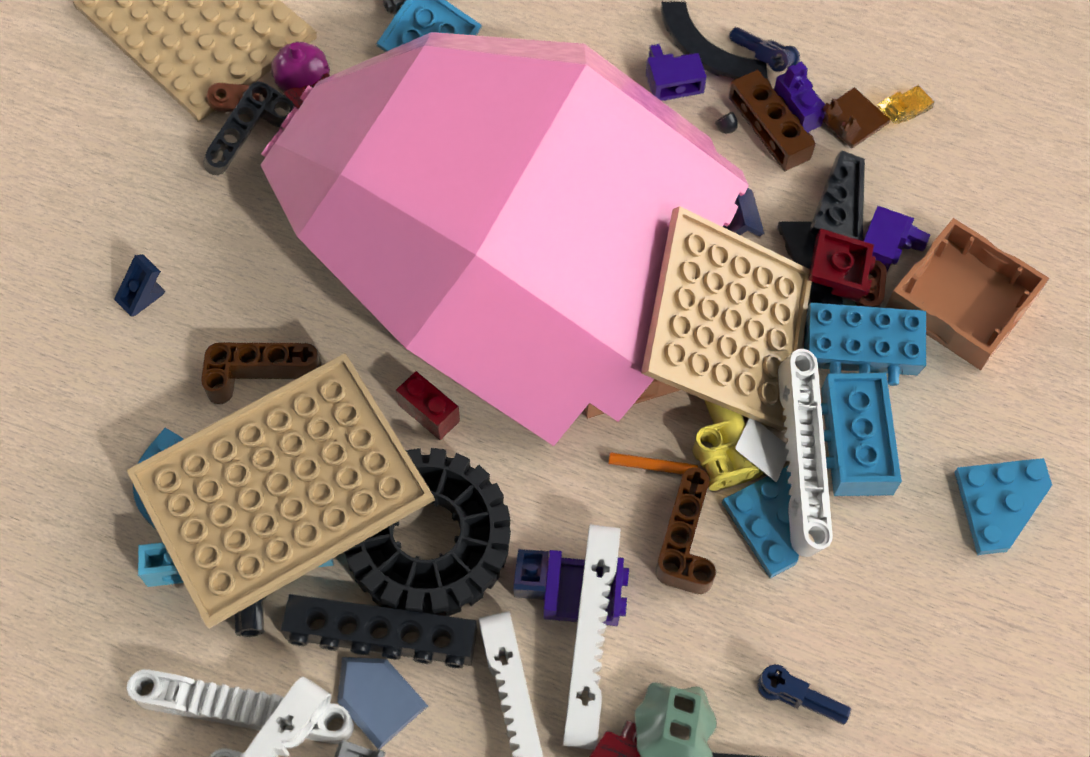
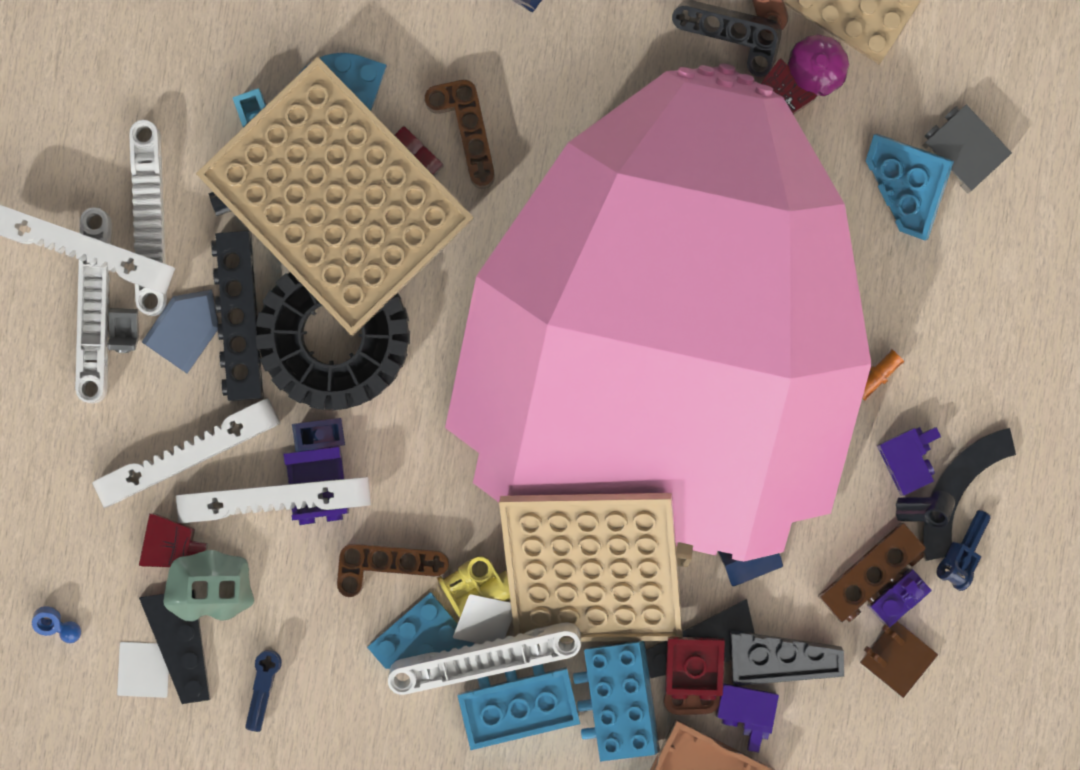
camera: 75 degrees right, 25 degrees up
(428, 405) = (457, 303): dark red brick -> none
(649, 463) = (452, 521): orange bar -> none
(722, 58) = (932, 510): none -> black piece
(727, 123) = (859, 526): black hinge -> none
(907, 105) = (927, 712): clear yellow slope -> none

